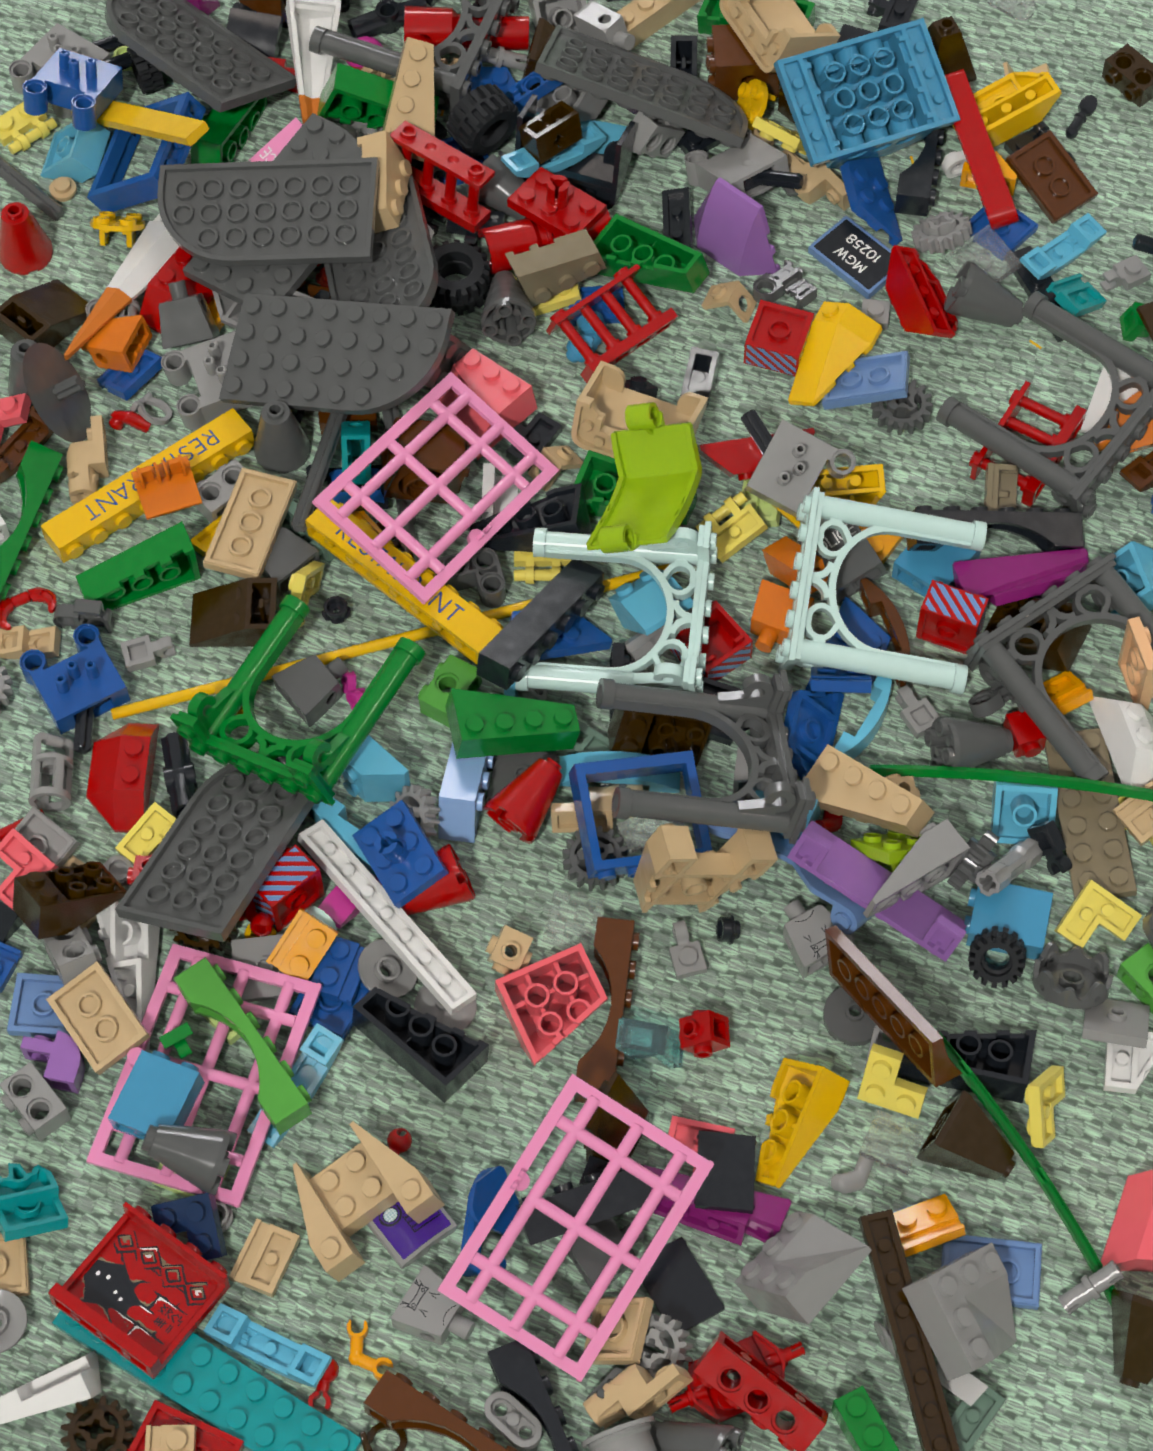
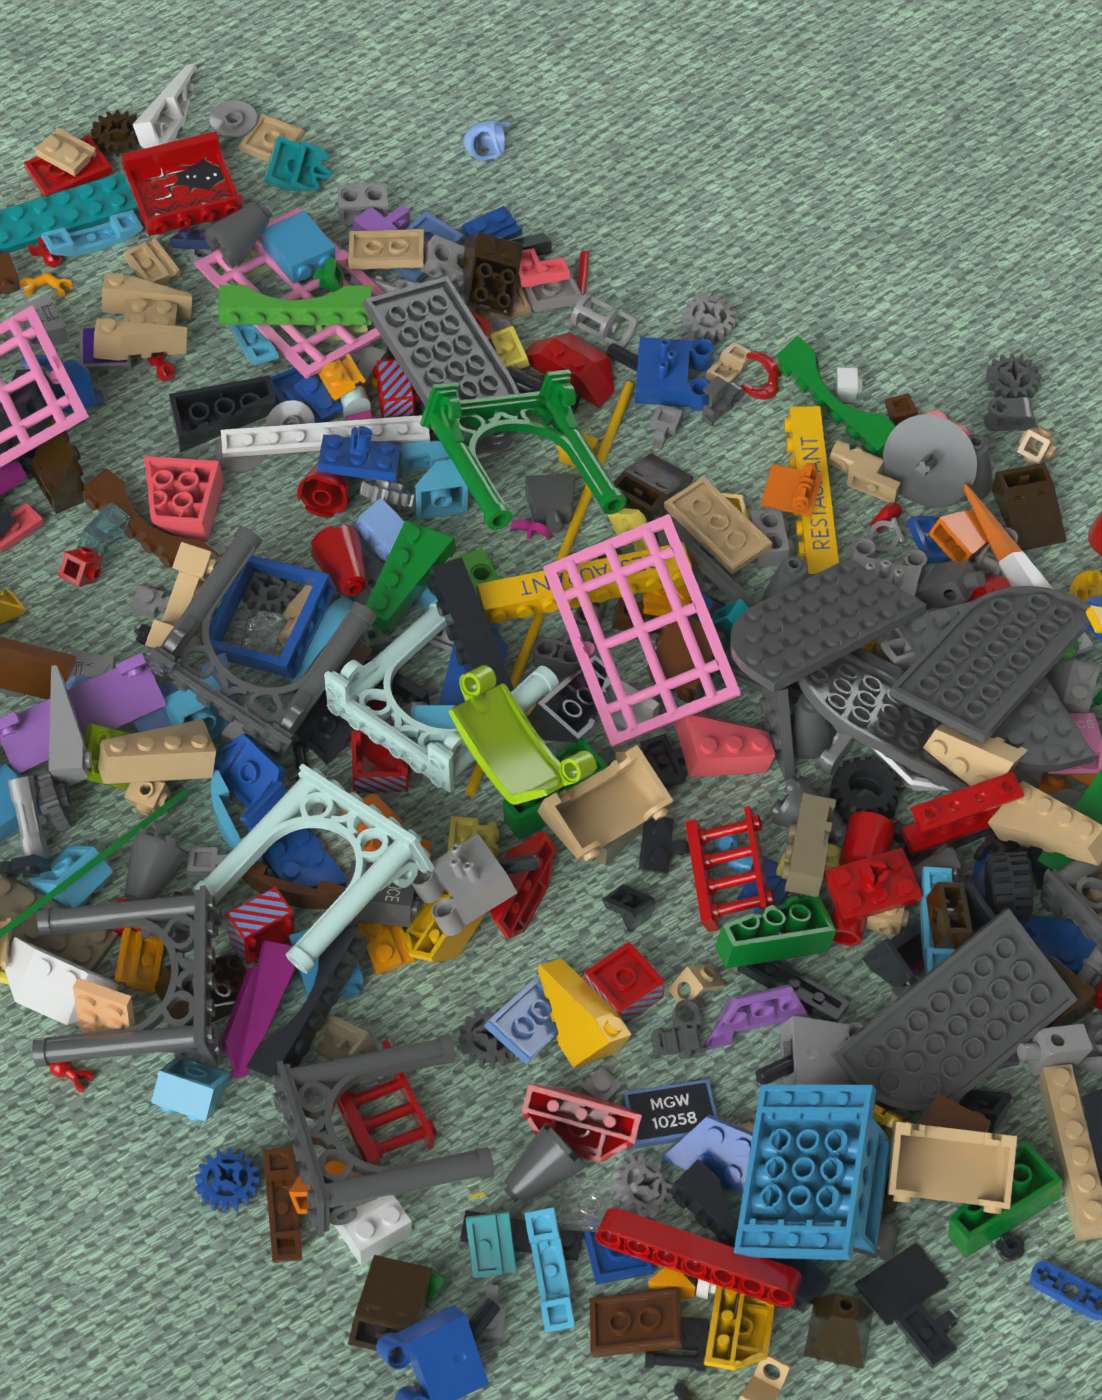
camera: 120 degrees right, 5 degrees down
(142, 570) = (733, 447): green wedge -> none
(517, 942) = (241, 495): tan brick -> none

